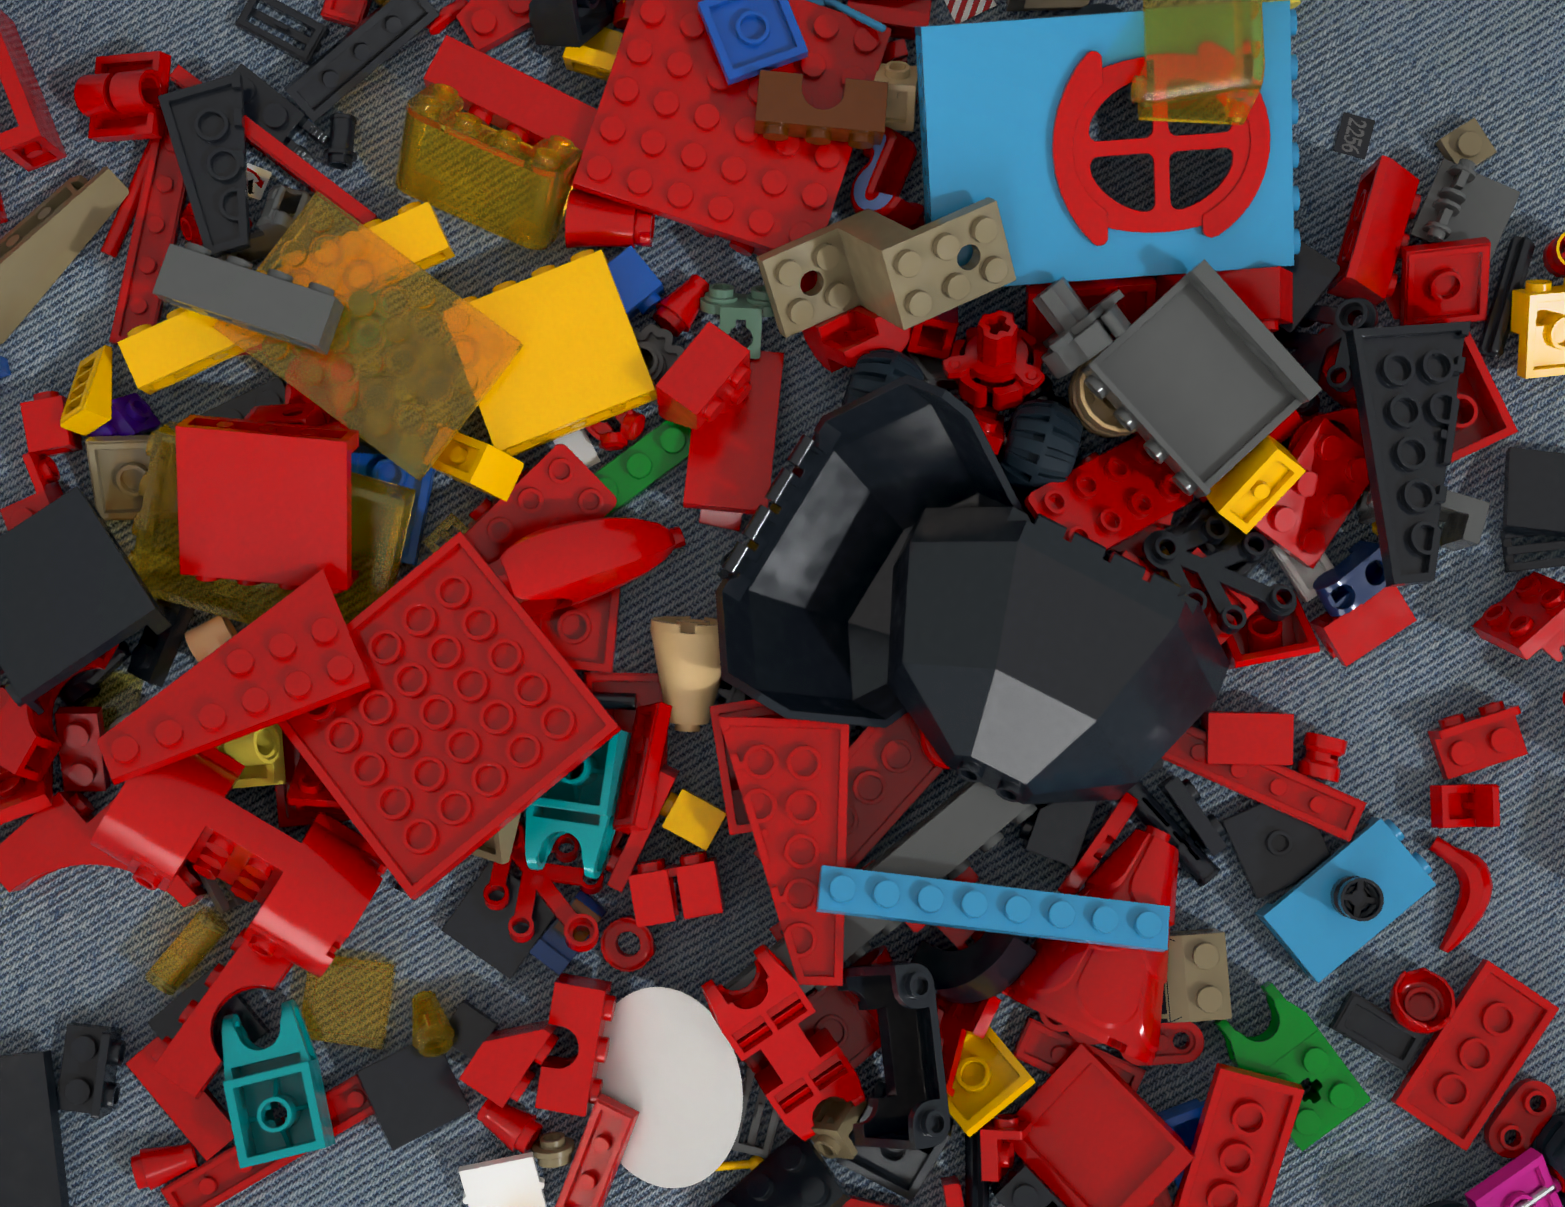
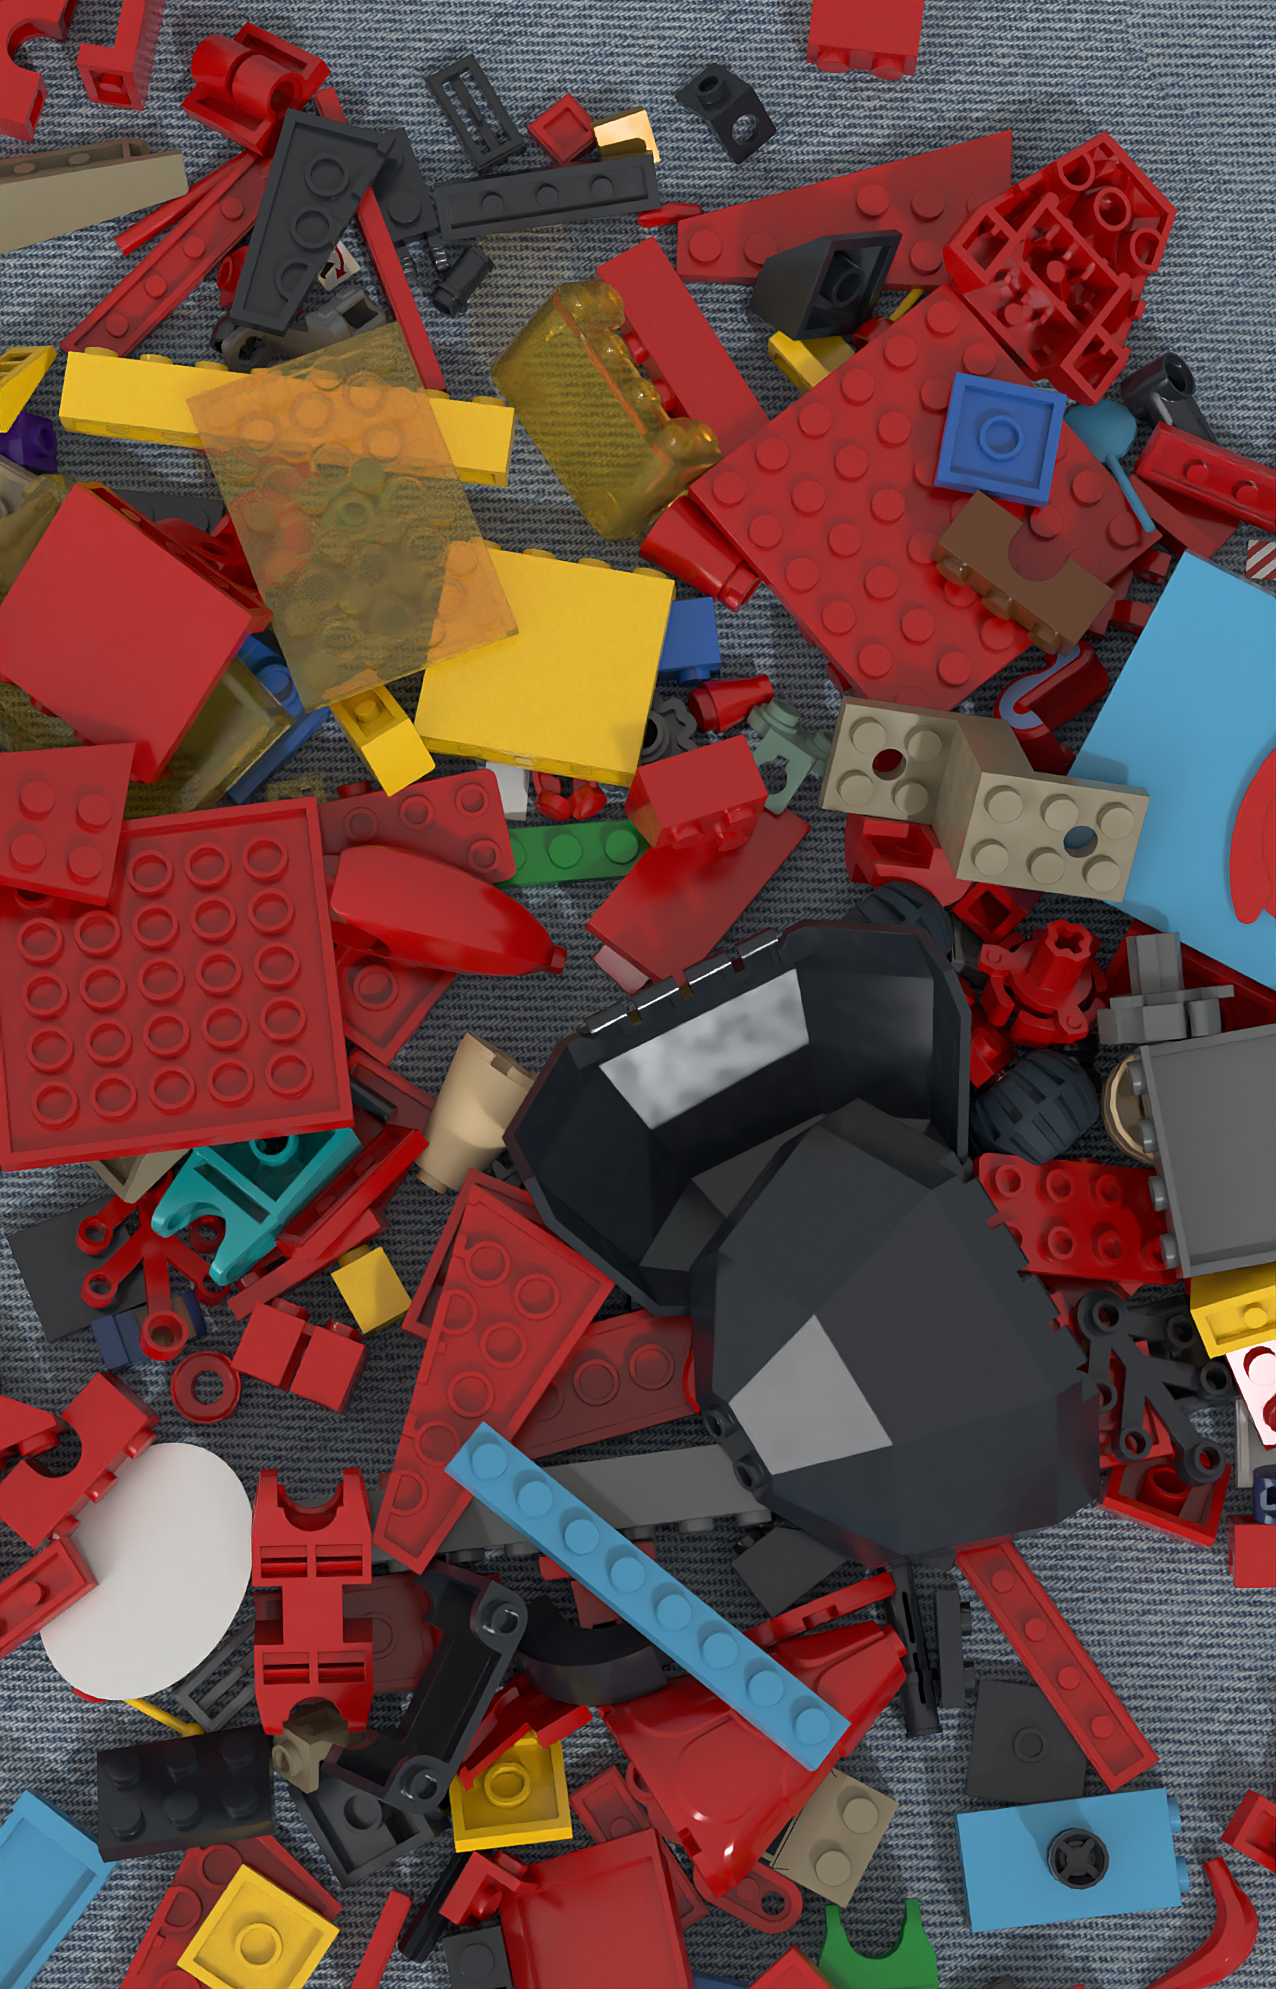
camera: 30 degrees right, 5 degrees down
(249, 298) = (246, 392): dark grey brick -> none
(901, 94) = (1124, 615): tan bracket -> none
(1249, 737) = (1070, 1599): red panel -> none
(1322, 757) = (1142, 1677): red wheel -> none

